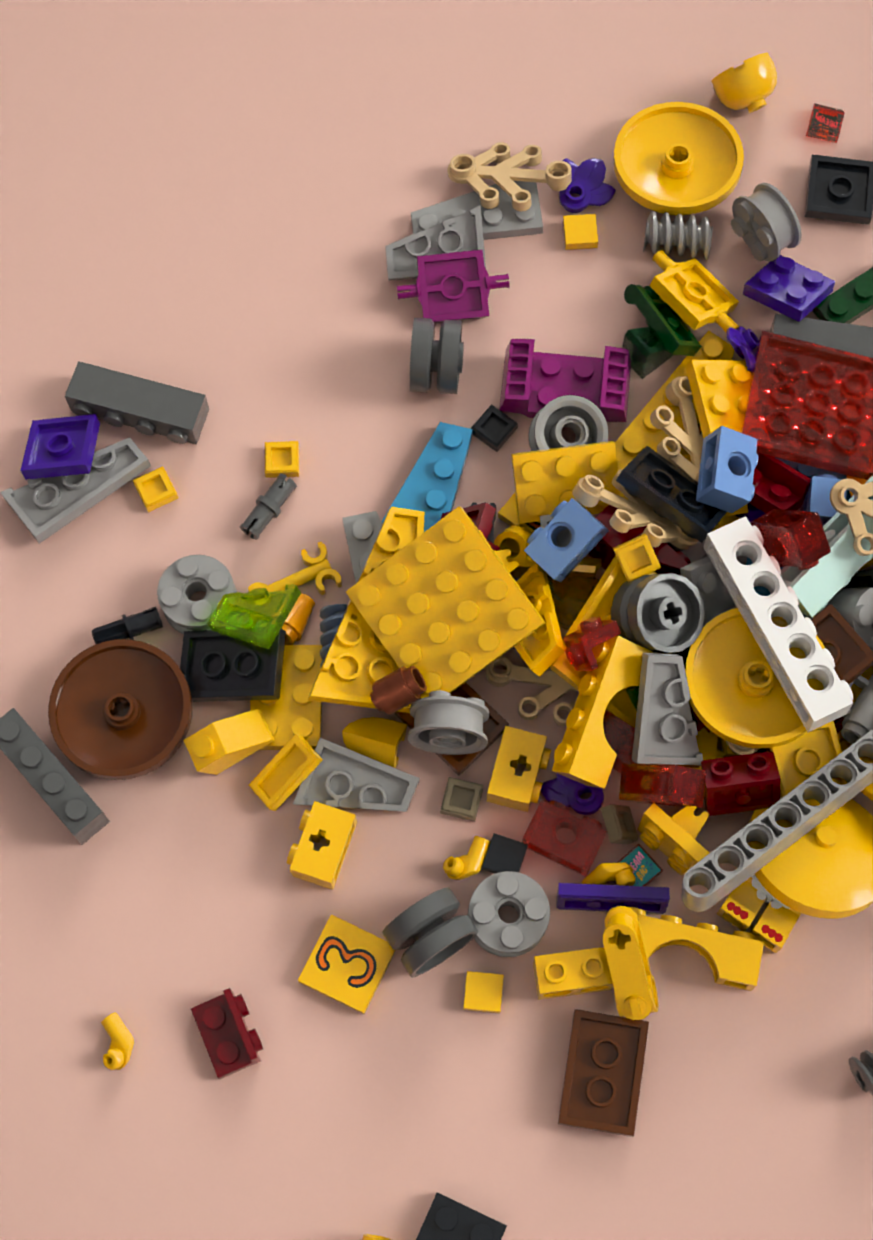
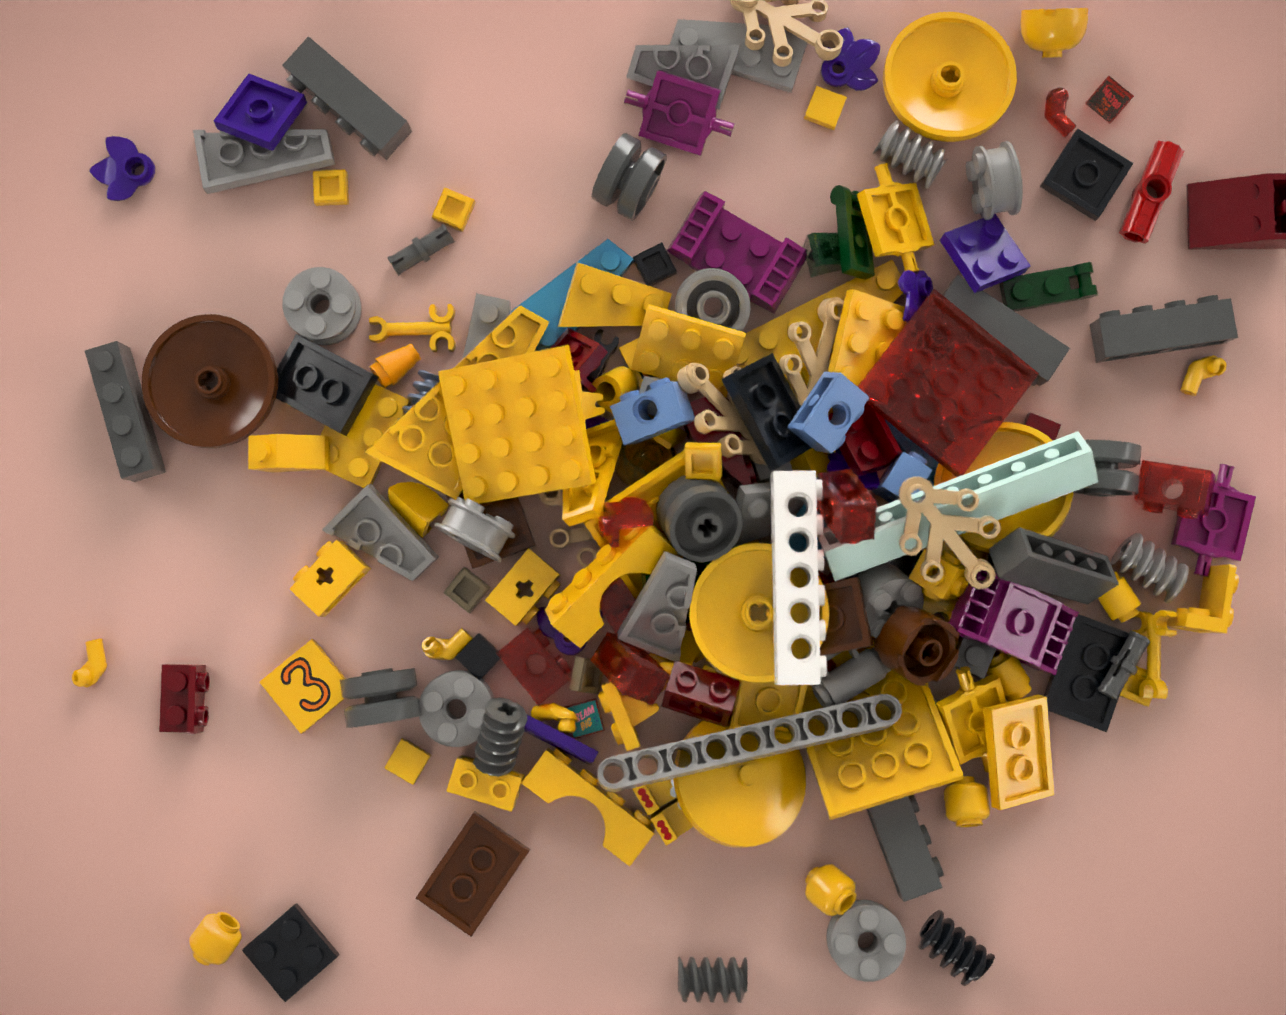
camera: 25 degrees right, 15 degrees up
(128, 626) = (250, 307): black axle -> none
(254, 615) = (354, 353): clear neon green wing -> none
(285, 772) = (326, 500): yellow tile -> none
(398, 689) = (442, 481): copper brick -> none
(467, 472) = (608, 299): none -> yellow wing
(569, 912) = (500, 737): none -> dark grey piece
(629, 965) = (529, 803): yellow piece -> none
(784, 150) = (1055, 111): none -> clear red arm

